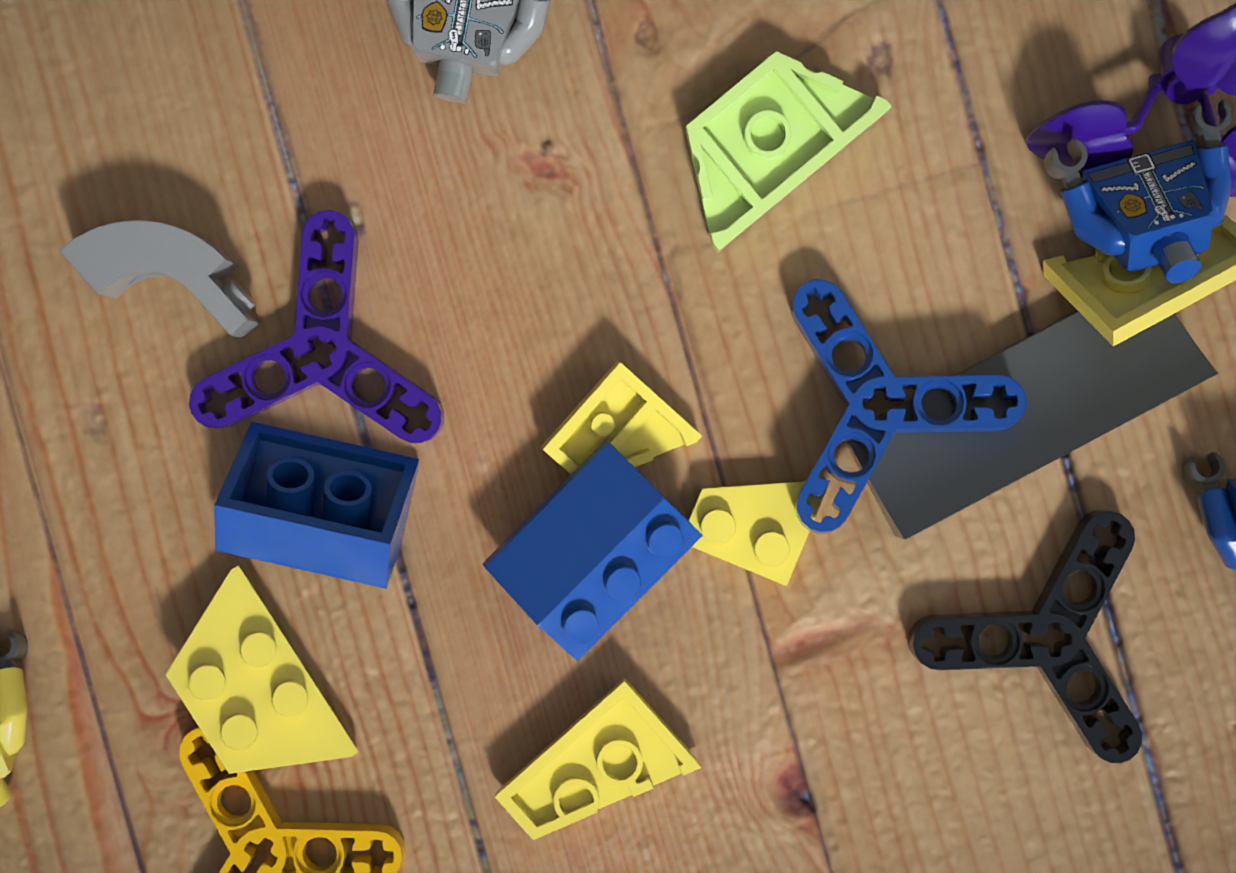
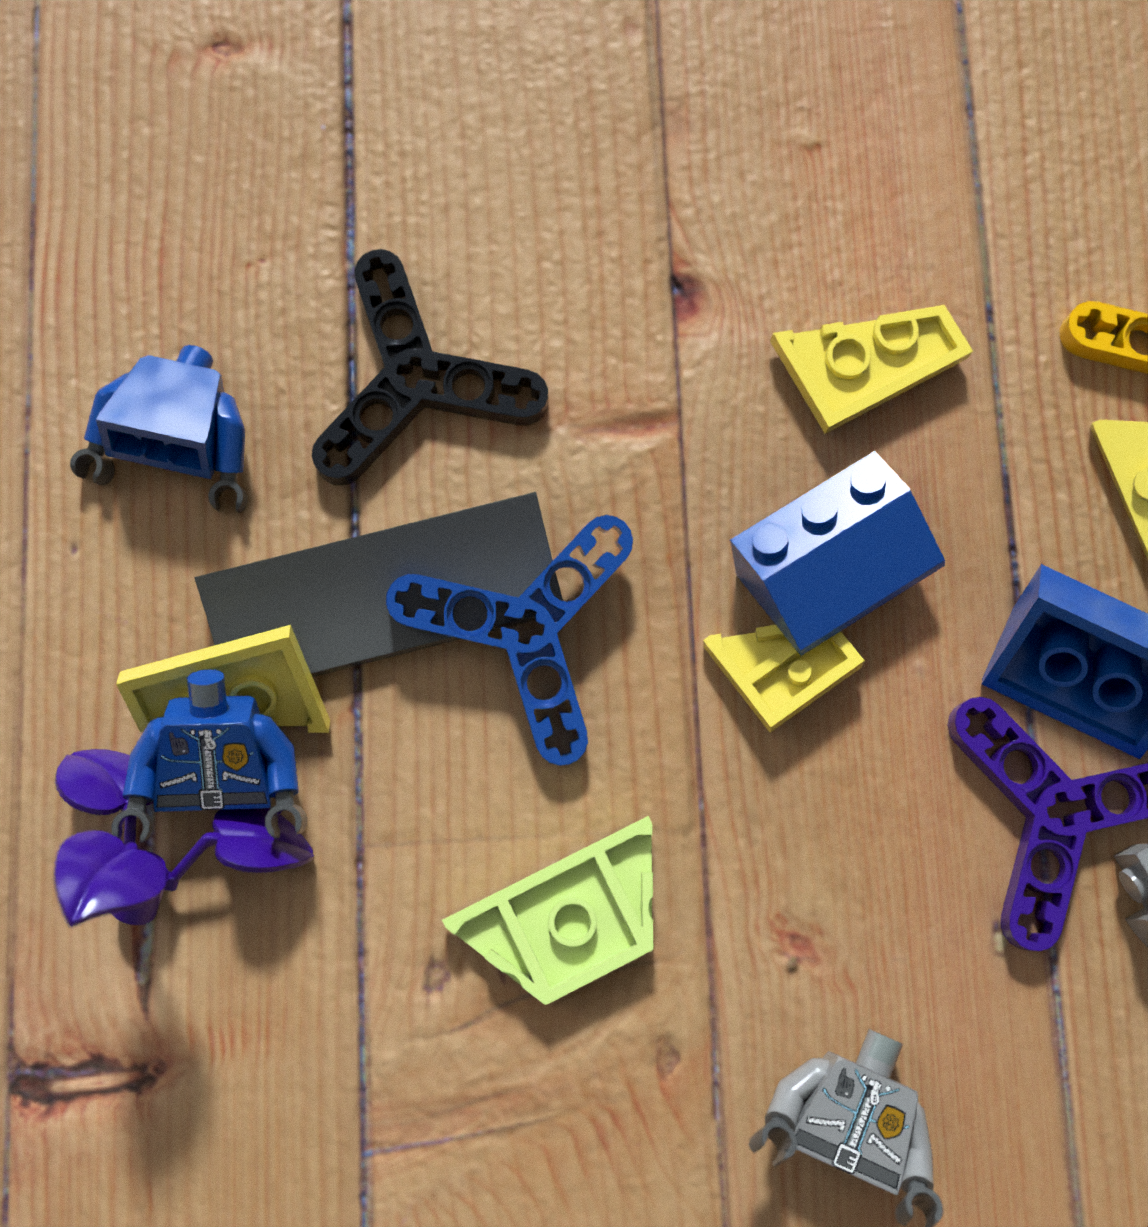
camera: 175 degrees left, 10 degrees down
(753, 526) = (673, 544): light yellow wing -> none

